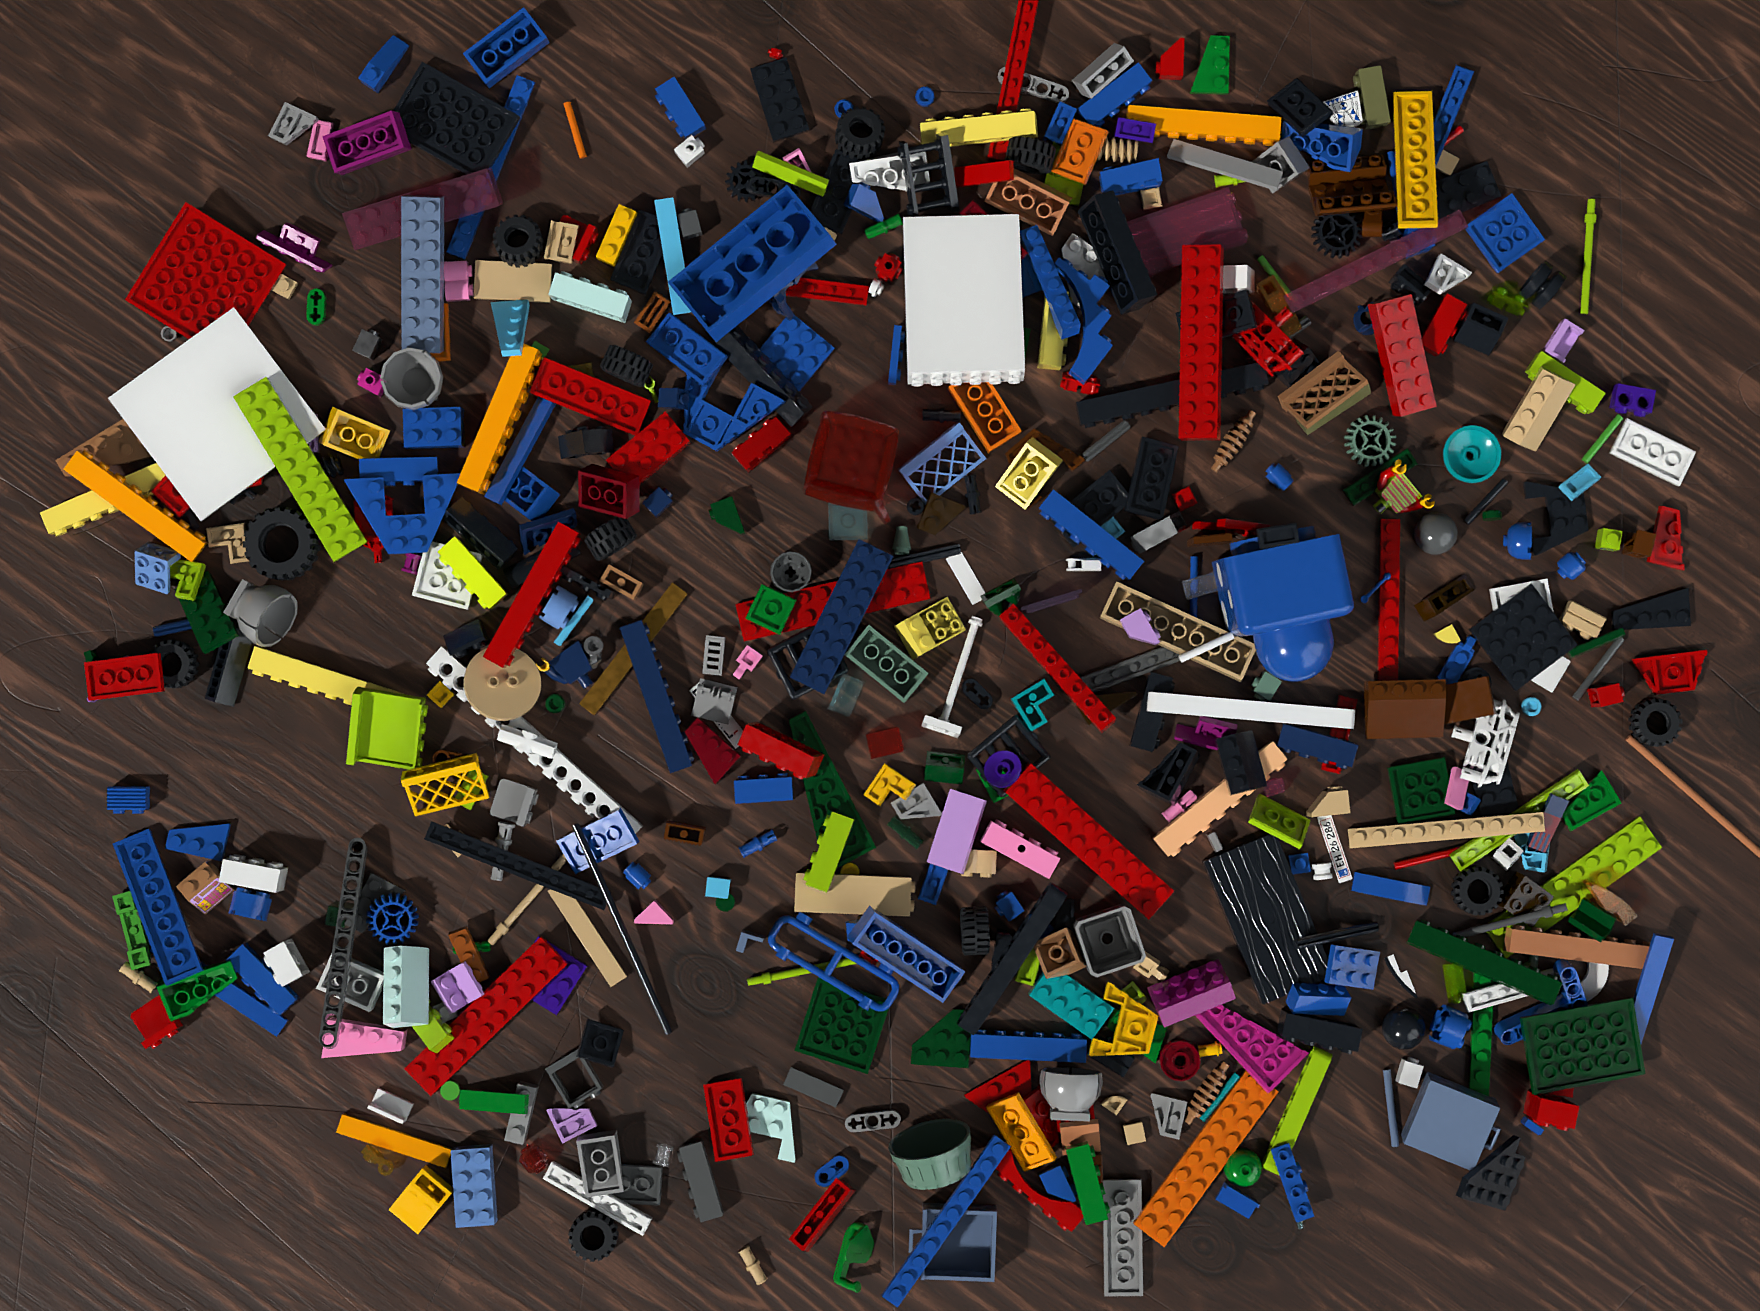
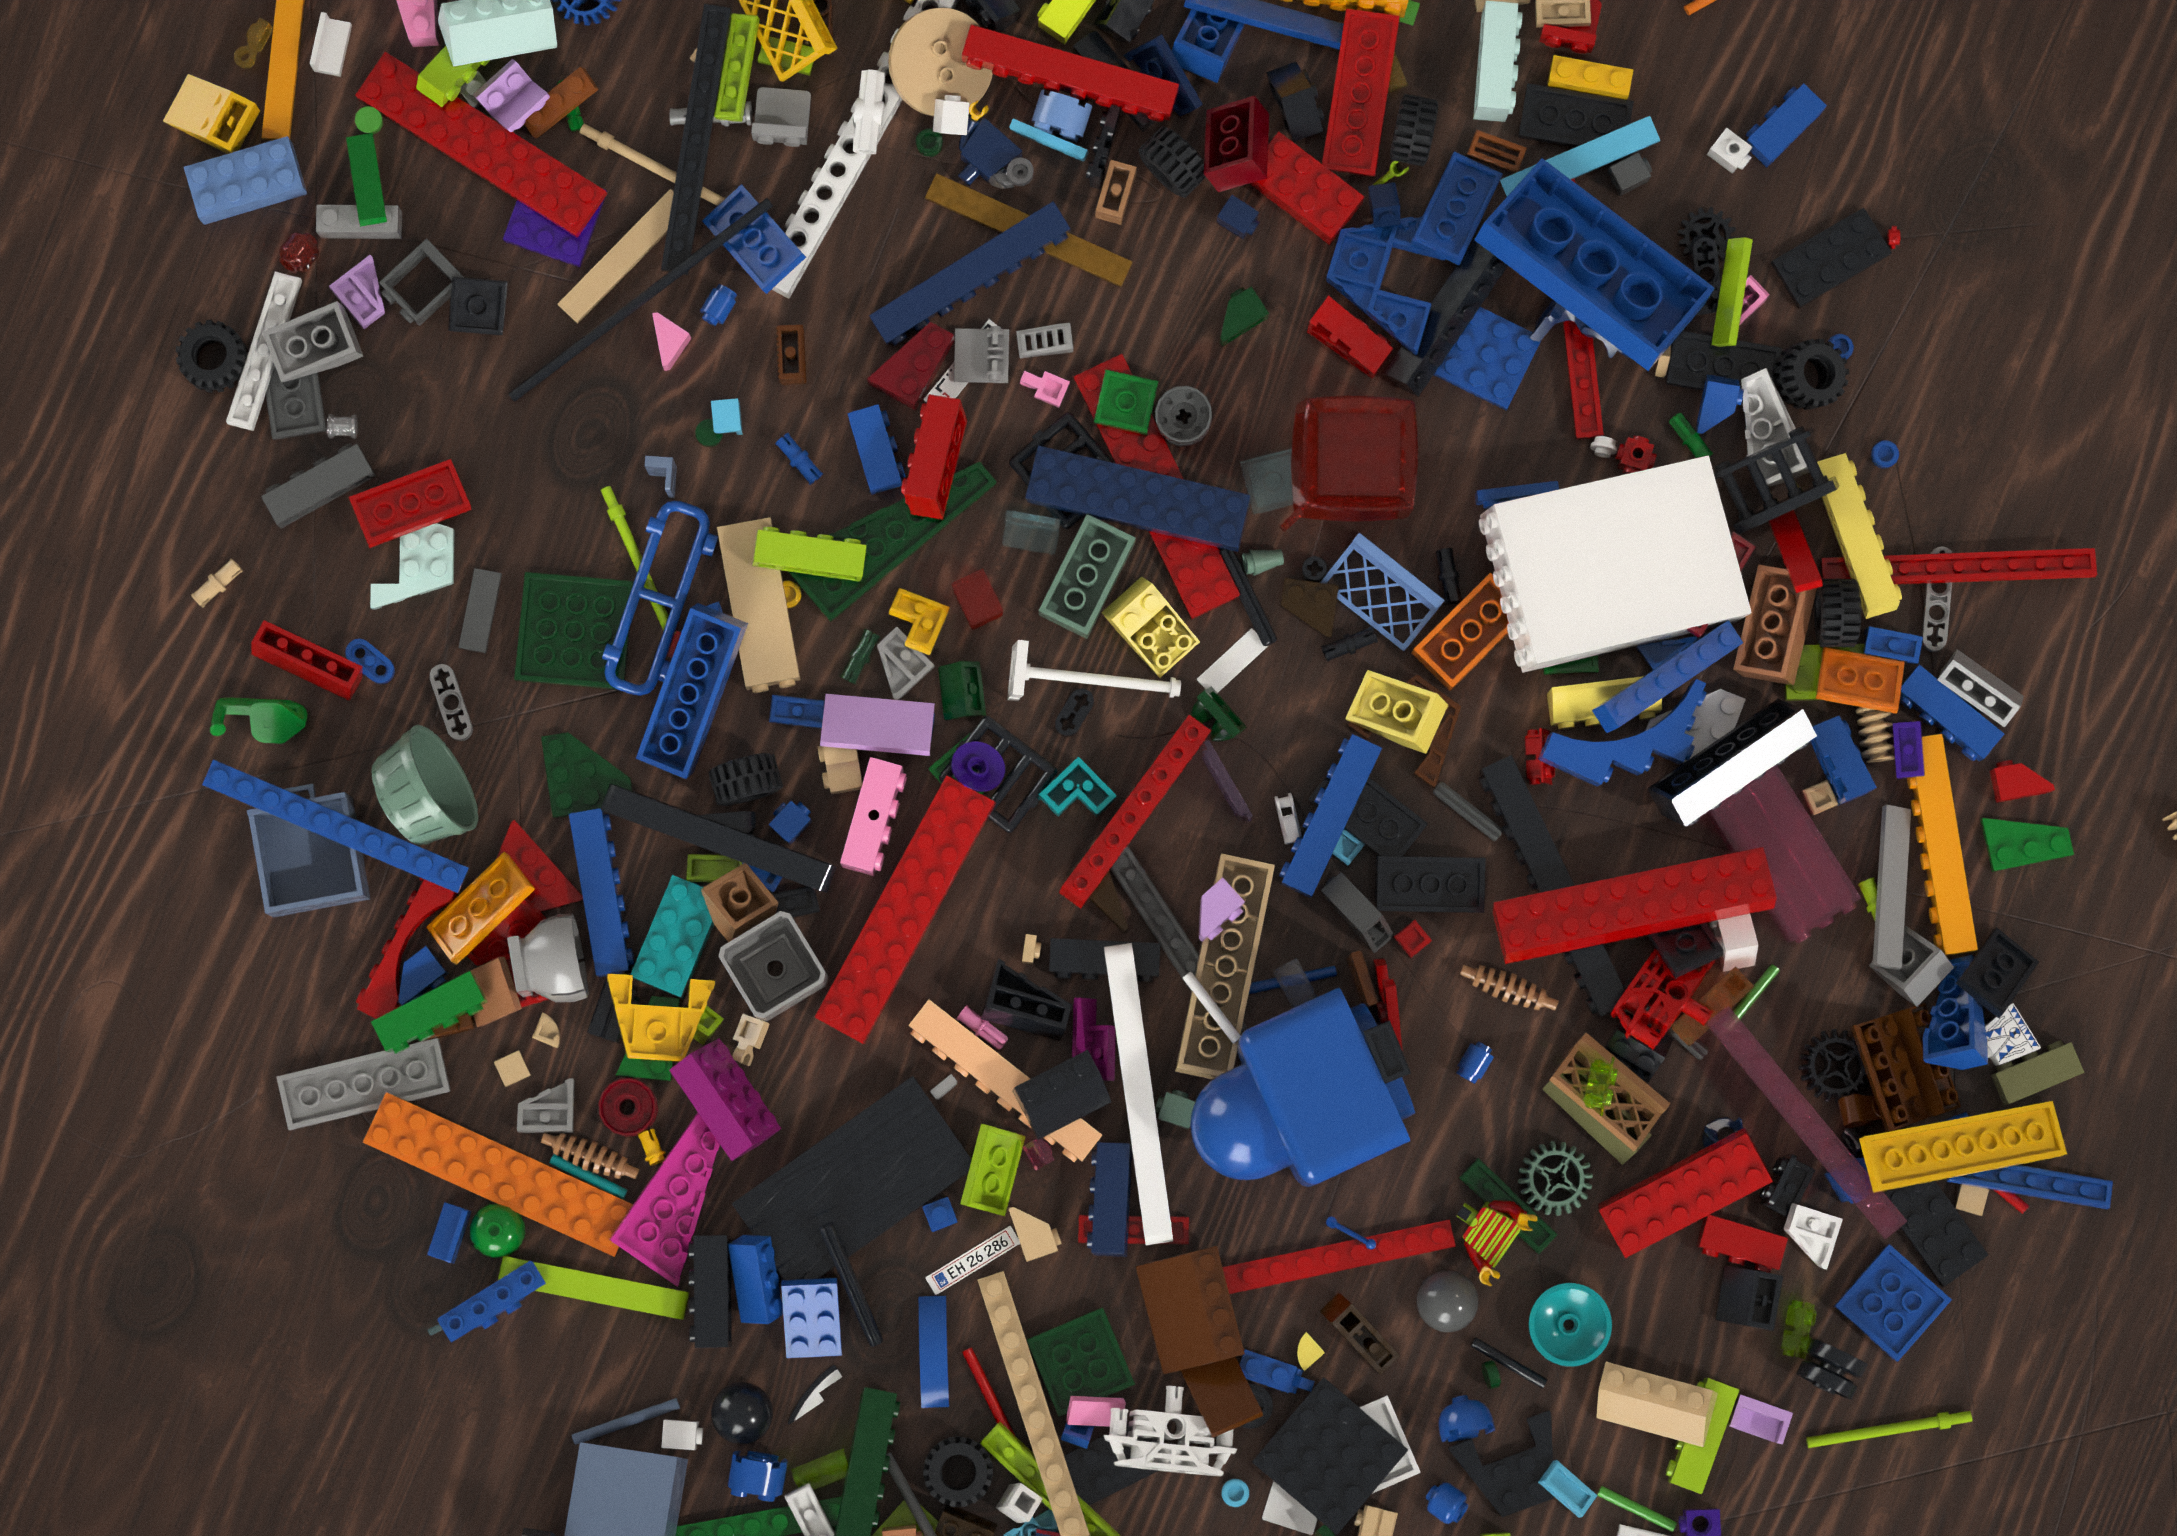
camera: 75 degrees right, 5 degrees down
(473, 826) = (736, 67): none -> lime tile
(542, 684) = (951, 115): none -> white brick
(1133, 760) = (1031, 949): none -> tan plate
(1322, 871) = (936, 1247): white wheel -> none
(1325, 397) = (1600, 1094): none -> clear neon green hinge

